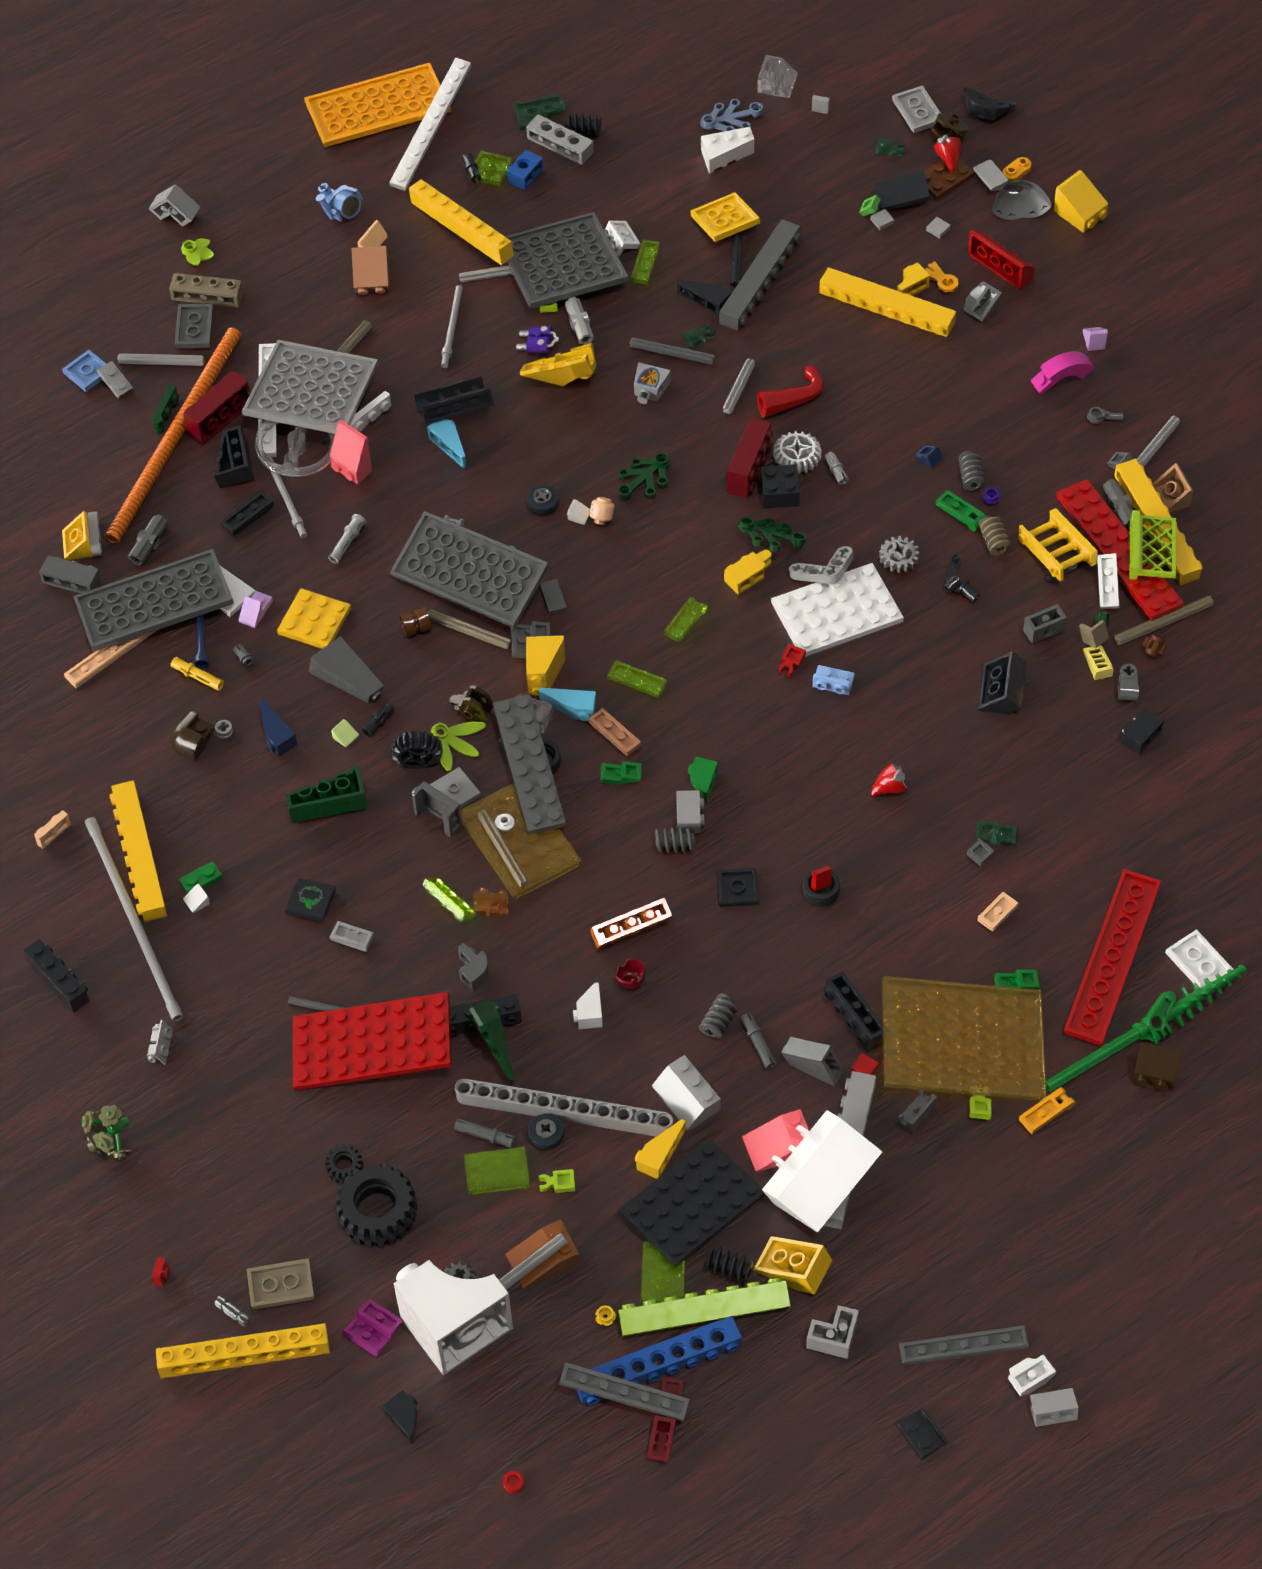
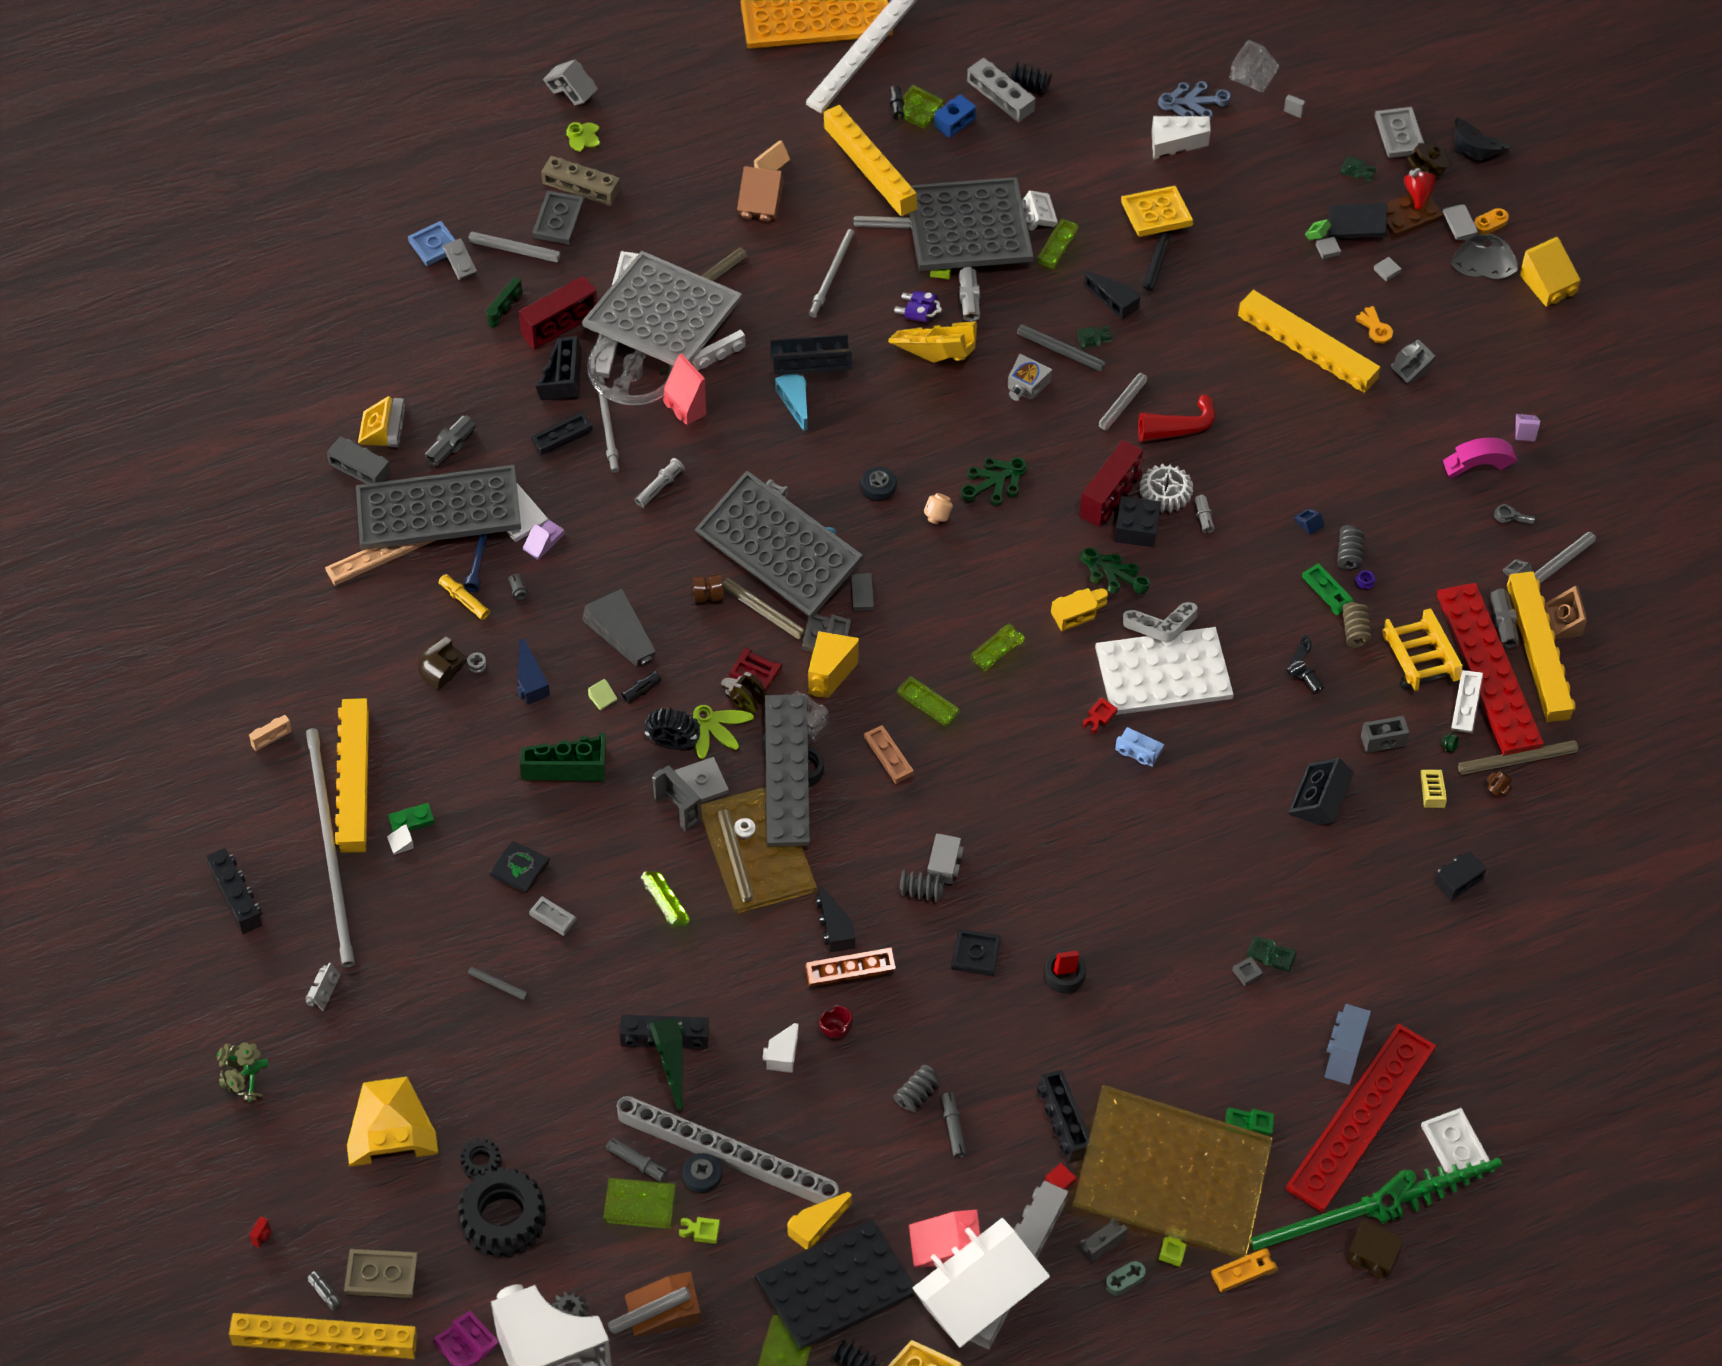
camera: 10 degrees right, 0 degrees up
(171, 438) = (503, 334): orange piece -> none
(251, 1148) = (389, 1121): none -> yellow wedge
(314, 619) = (602, 563): yellow plate -> none
(344, 200) = (751, 112): medium blue piece -> none
(372, 1041) = (543, 1034): red plate -> none
(464, 683) = (764, 676): none -> dark red plate
(475, 970) = (674, 980): dark grey brick -> none
(491, 902) = (709, 912): clear orange hips -> none
(545, 107) = (991, 49): clear green wing -> none
(573, 703) = (852, 713): medium azure slope -> none
(578, 512) = (912, 505): white slope -> none
(608, 888) = (837, 923): none -> black slope
(620, 774) = (887, 802): green slope -> none
(687, 1093) = (861, 1164): light grey slope -> none
(703, 775) = (970, 823): green slope -> none
(759, 275) = (1177, 283): dark grey brick -> none
(813, 1059) = (1006, 1158): dark grey slope -> none
(889, 781) = (1170, 872): red hat -> none
(899, 554) = (1247, 623): light grey gear -> none
(914, 280) = (1345, 322): yellow arch -> none
(948, 1143) = (1122, 1274): none -> sand green beam
(997, 911) = (1249, 1040): light nougat plate -> none
(1000, 260) = (1445, 318): red slope -> none
(1084, 895) = (1347, 1043): none -> sand blue wedge
(1094, 636) = (1437, 758): dark tan panel -> none
(1128, 683) = (1458, 821): dark grey piece -> none
(1137, 541) = (1507, 672): lime fence -> none

